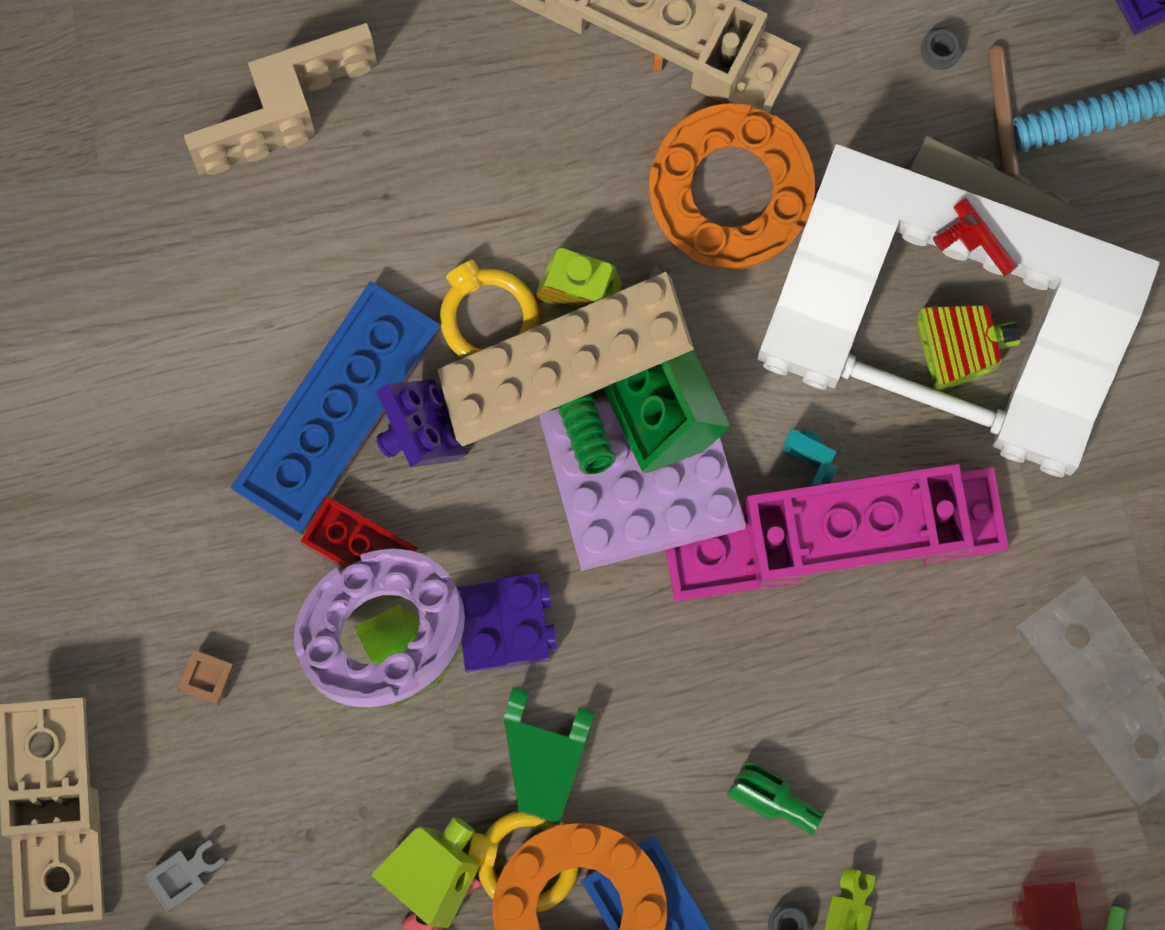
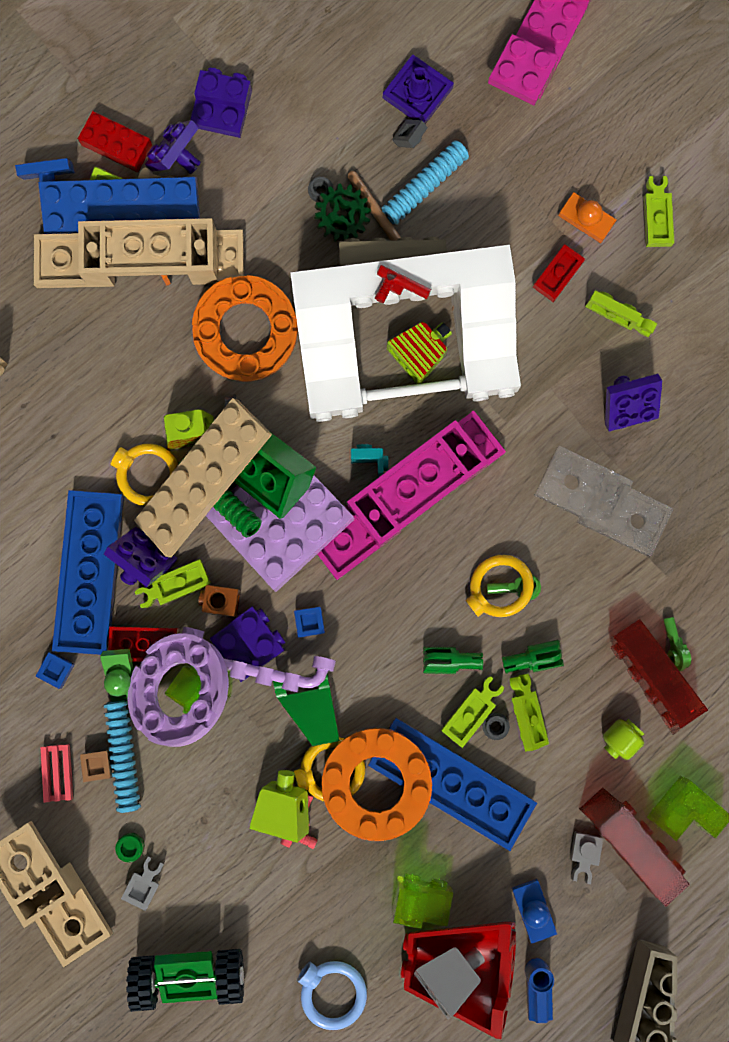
camera: 30 degrees left, 5 degrees up
(160, 625) = (46, 776): none -> coral tile
(190, 815) = (129, 847): none -> green tile
(219, 517) = (55, 670): none -> blue plate
(248, 683) = (122, 757): none -> medium azure piece
(305, 565) = (118, 672): none -> bright green tile
(447, 488) = (176, 584): none -> lime plate
(506, 559) = (231, 605): none -> dark orange brick
(536, 701) = (266, 675): none -> lavender bar
(604, 639) = (309, 622): none -> blue plate
(763, 888) = (471, 713): none -> lime plate
(857, 739) = (480, 604): none -> yellow piece
(897, 860) = (536, 658): none -> green arm
(935, 754) = (503, 588): none -> bright green plate
(953, 115) = (338, 203): none -> dark green gear
(1109, 36) = (410, 133): none -> dark grey plate

